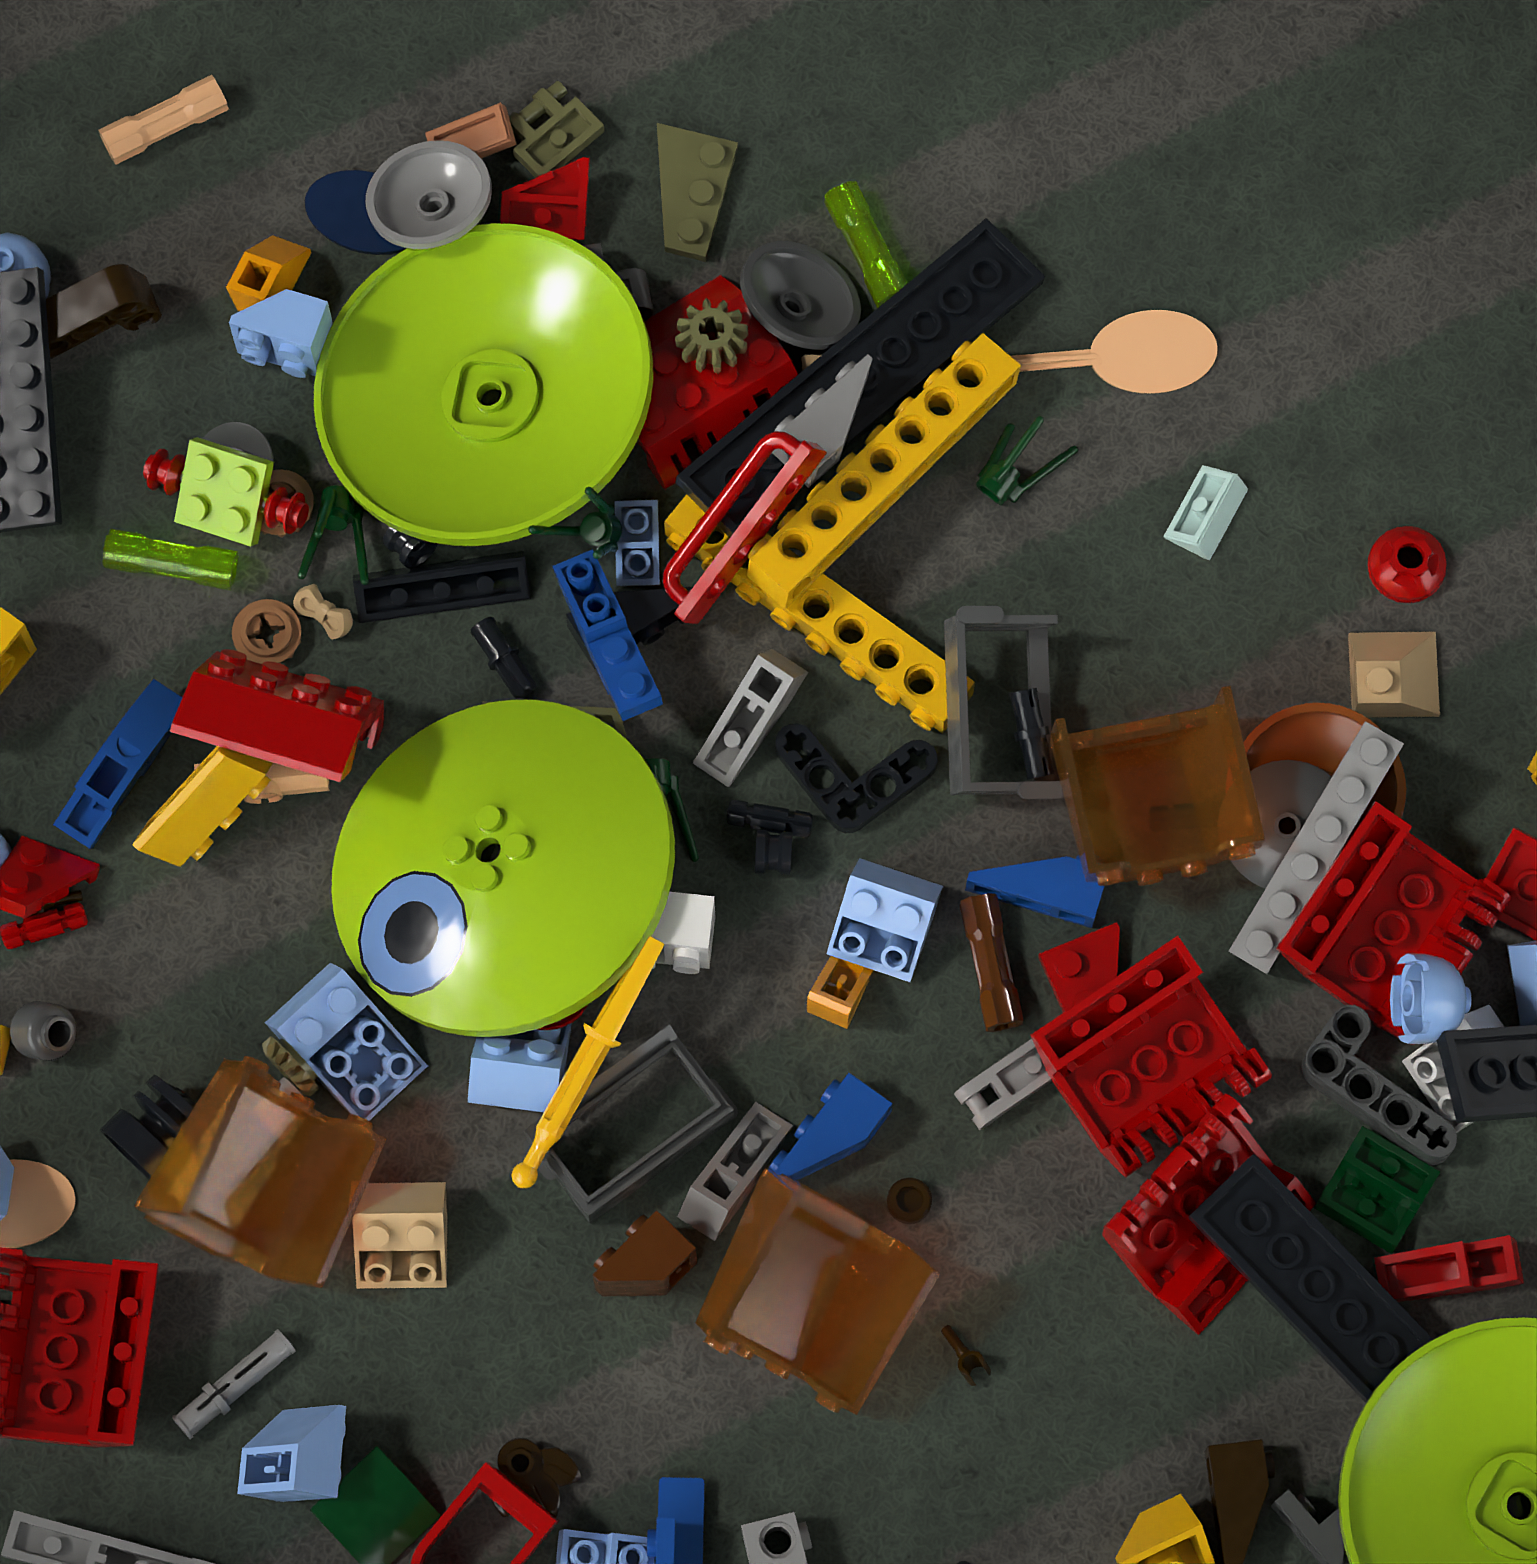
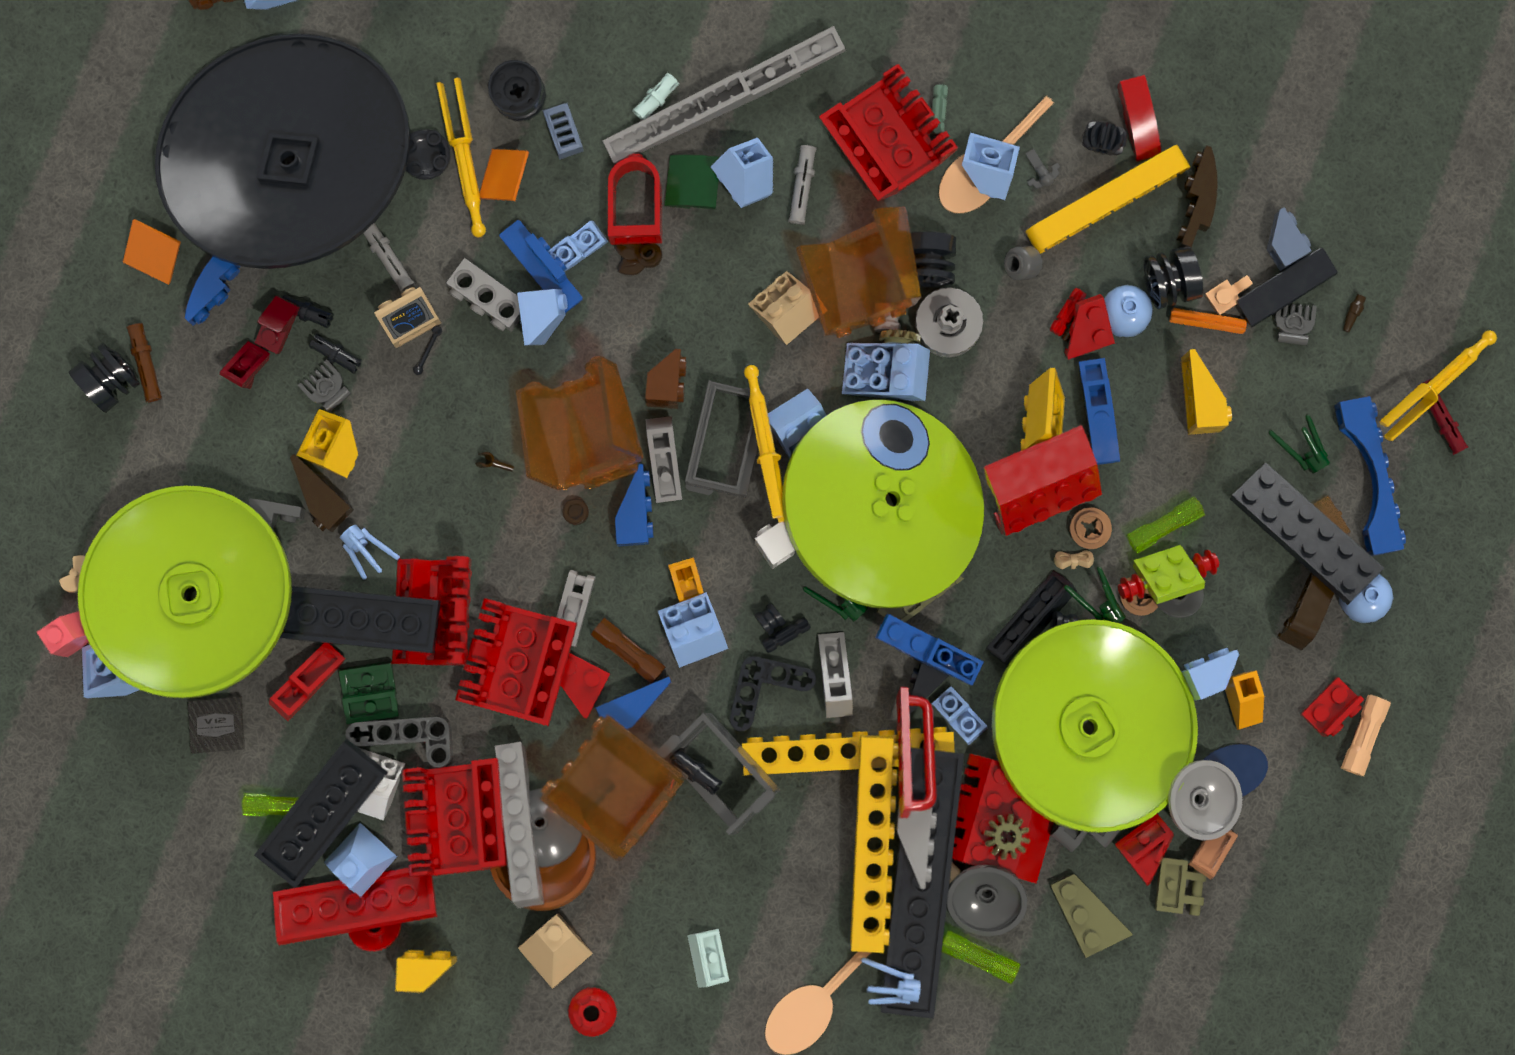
camera: 135 degrees right, 10 degrees up
(172, 181) = (1332, 708): none -> red bracket
(185, 1014) = (958, 306): none -> light grey piece
(503, 657) = (972, 607): black axle -> none
(596, 529) = (981, 703): dark green plant -> none
(732, 1495) = (541, 314): none -> light blue slope
(993, 270) = (906, 990): none -> light blue plant
(1000, 479) = (817, 890): dark green plant -> none
(1235, 1403) = (355, 540): none -> light blue plant
(1427, 998) = (406, 789): light blue cylinder -> none

